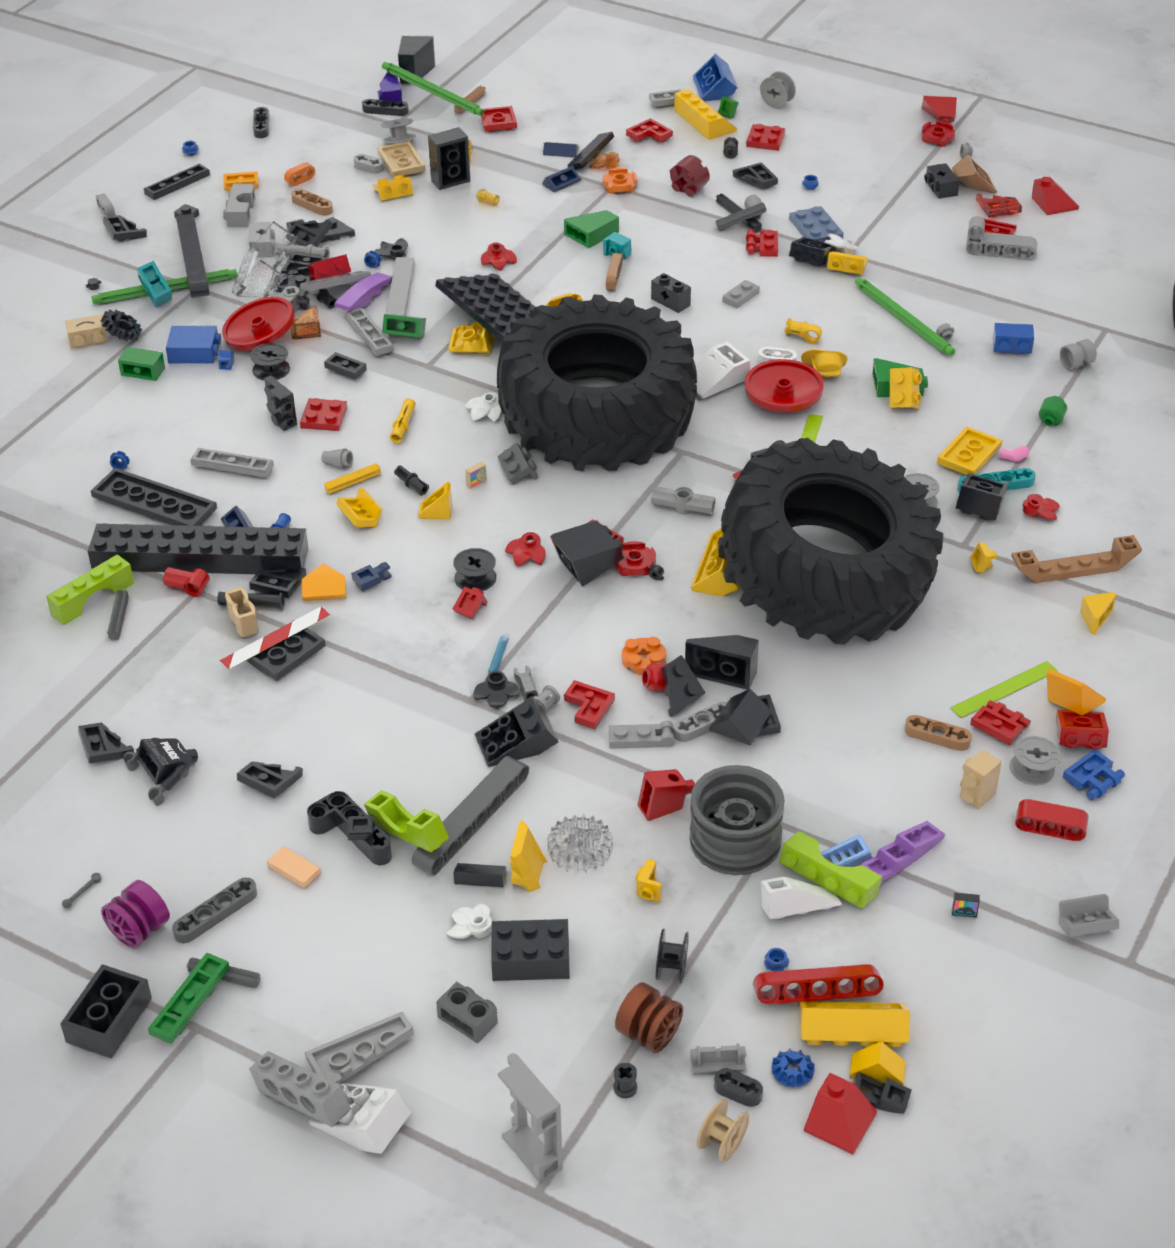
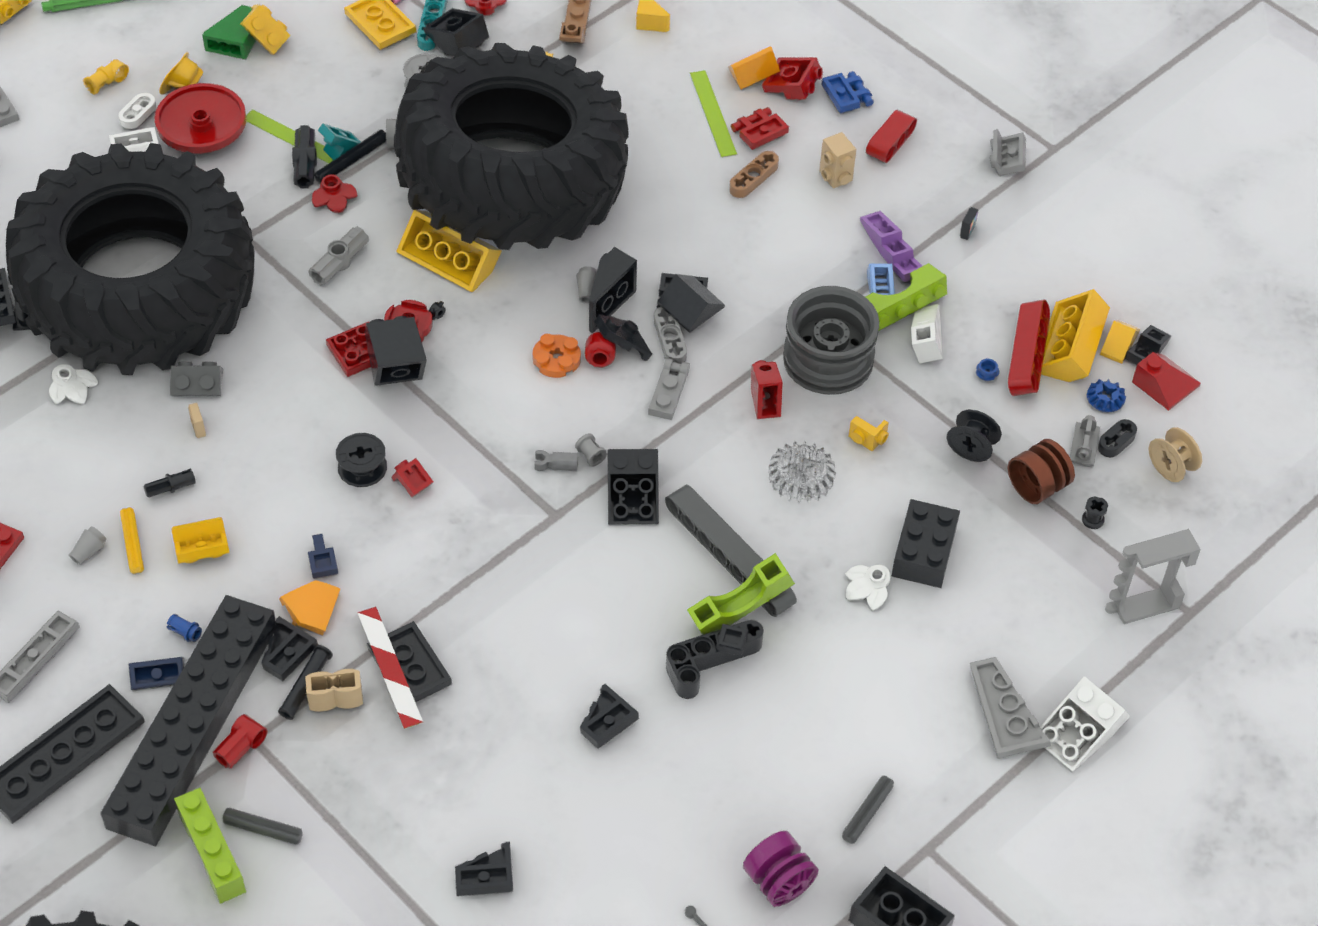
camera: 75 degrees left, 10 degrees up
(164, 762) = (550, 809): black torso -> none
(188, 998) = (905, 840): green hinge -> none
(212, 907) = (783, 801): dark grey beam -> none
(293, 867) = (742, 721): light nougat tile -> none
(300, 1088) = (1054, 758): light grey brick -> none
(401, 425) = (59, 470): yellow pin -> none
(438, 504) = (230, 466): yellow slope -> none
(467, 1012) = (986, 615): dark grey brick -> none
(479, 875) = (808, 562): black slope -> none
(496, 689) = (556, 489): black plate -> none
(498, 654) = (502, 472): medium azure piece -> none
(524, 550) = (348, 410): red plate -> none
(526, 859) = (812, 517): yellow slope -> none
(593, 703) = (610, 410): red plate -> none
(1034, 760) = (817, 120): light grey piece -> none

